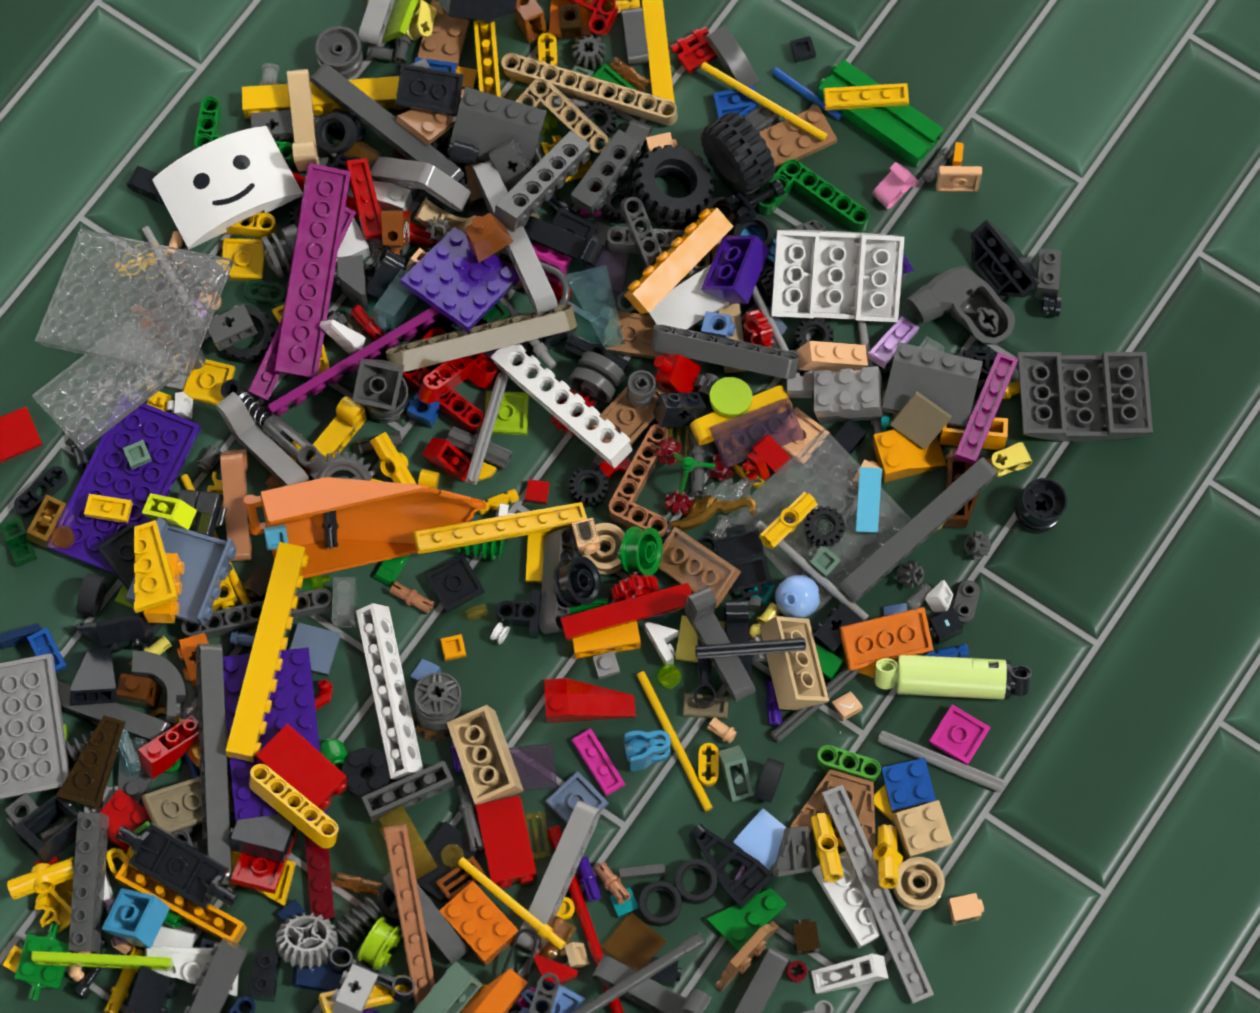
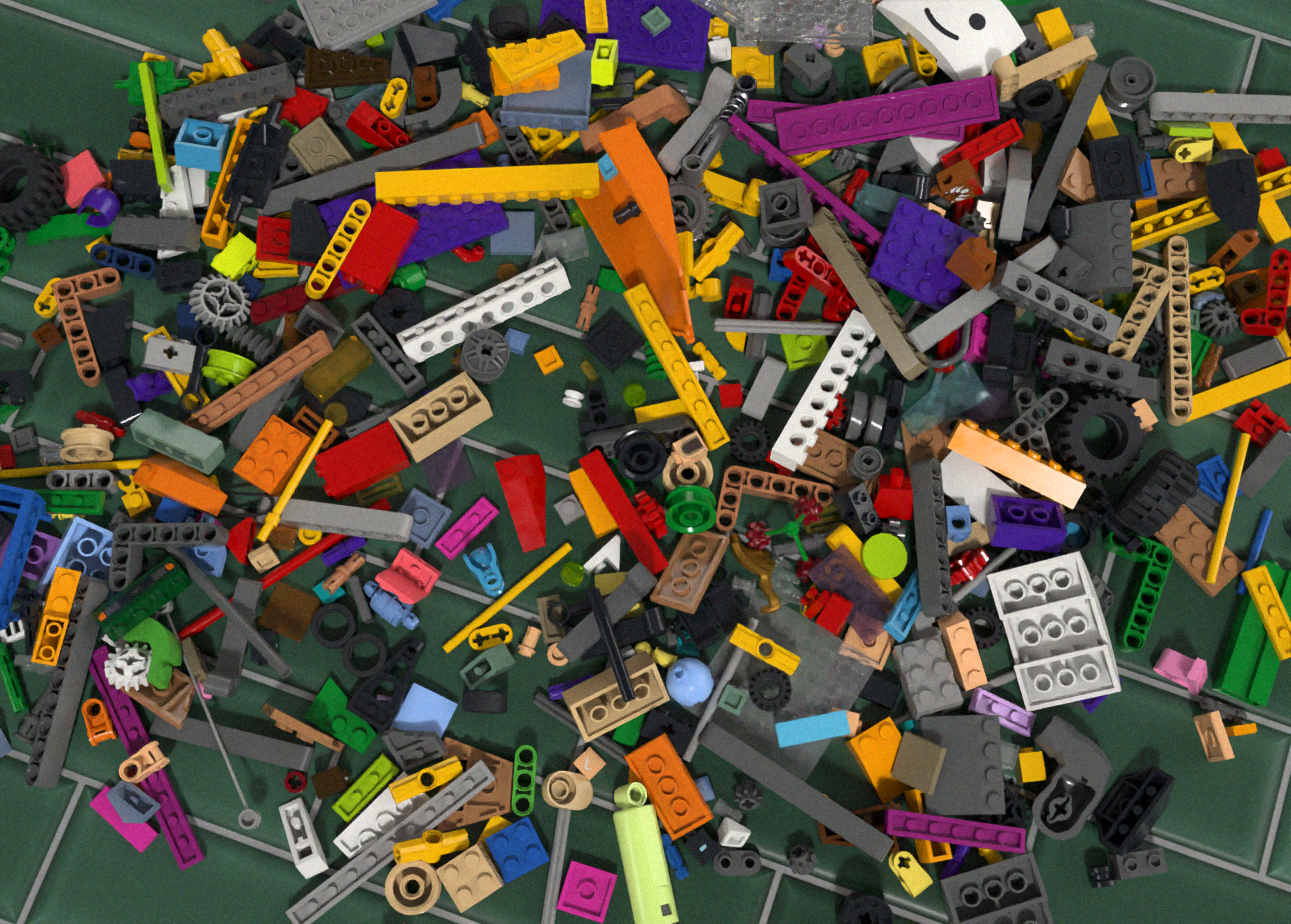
camera: 70 degrees right, 5 degrees up
(101, 988) = (140, 140): none -> orange tile
(143, 719) = (398, 100): none -> yellow beam
(261, 917) = (236, 258): none -> neon yellow brick
(343, 336) = (830, 172): white slope -> none
(355, 664) = (506, 272): none -> clear orange tile
(358, 849) = (316, 318): none -> dark grey slope
(511, 577) = (634, 395): none -> clear neon green tile
(539, 459) = (764, 388): none -> light grey beam
(564, 56) = (1205, 297): none -> sand blue arm
(632, 821) = (409, 577): none -> coral bracket
(654, 845) = (390, 607): none -> medium blue piece
(740, 709) = (555, 656): none -> light nougat tile
(781, 391) = (905, 609): none -> dark azure tile
(818, 909) = (366, 788): none -> lime tile
(866, 729) = (567, 790): none -> tan cap
(945, 333) = (1030, 766): none -> yellow brick
(1013, 423) = (953, 865): none -> dark purple axle

